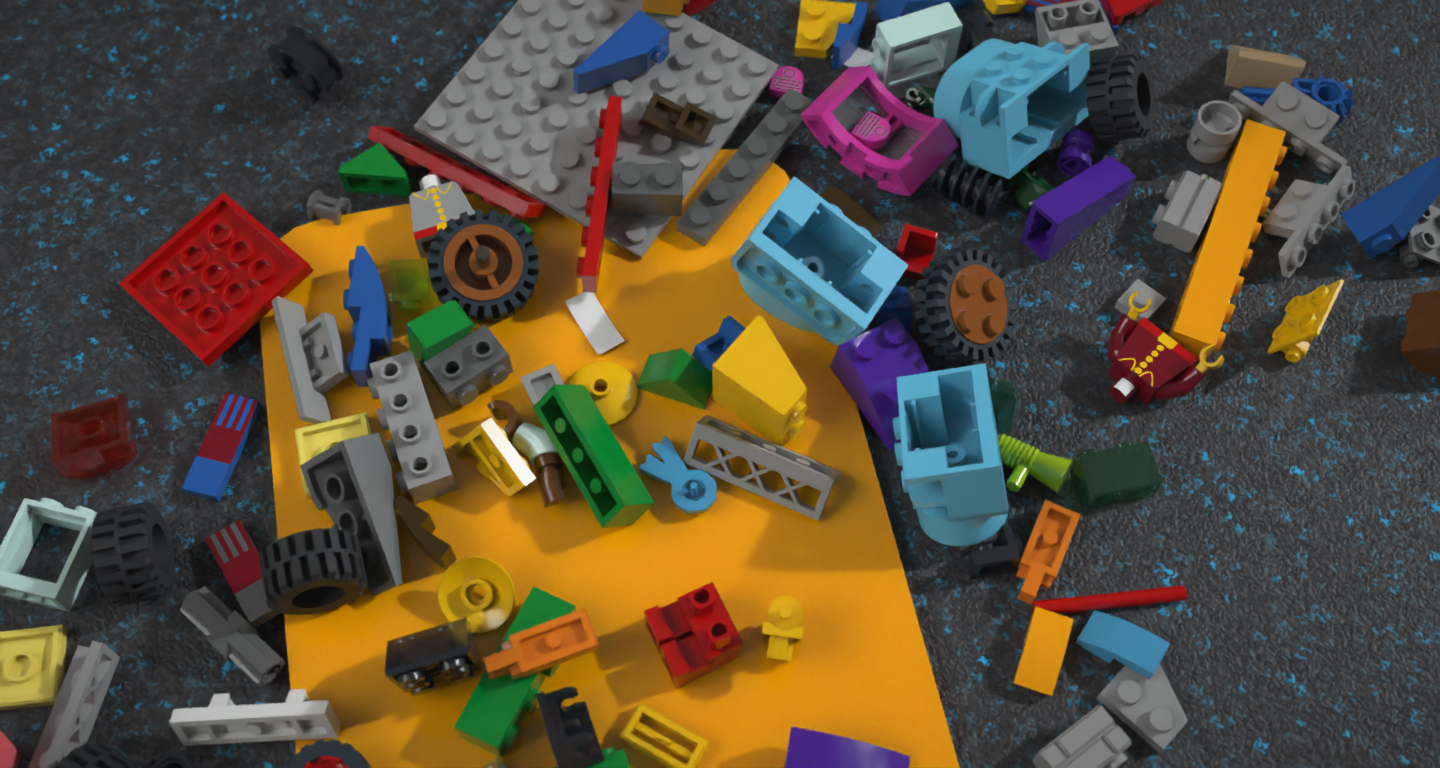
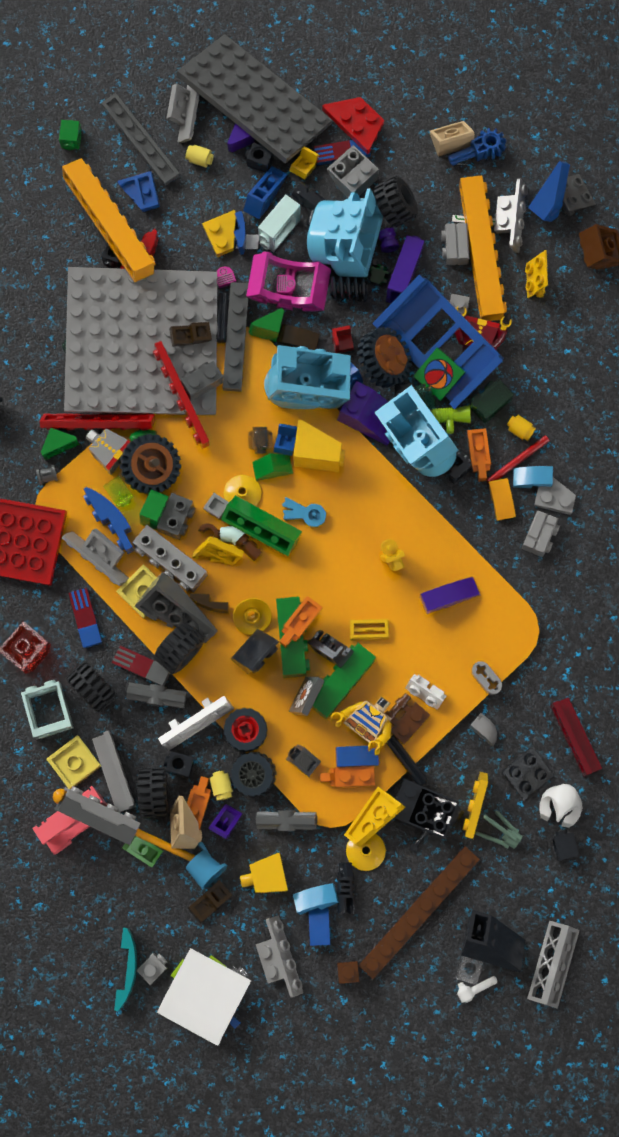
camera: 30 degrees left, 15 degrees up
(594, 322) = (216, 460): white sticker -> none
(625, 54) = (145, 311): blue slope -> none
(683, 325) = (260, 439): none -> clear smoke head
(693, 634) = (356, 569): red hips -> none
(742, 131) = (222, 317): none -> black axle
(765, 453) = (333, 480): light grey fence -> none
(812, 169) = (267, 326): none -> green slope
(920, 97) = (297, 248): dark green arm -> none
(1048, 384) = (439, 373): none -> tile
(1051, 265) = (414, 310): none -> blue piece
(1145, 547) = (521, 427): none -> yellow brick
(1213, 131) = (447, 192): light grey wheel -> none
(1302, 120) = (482, 163): light grey bracket -> none

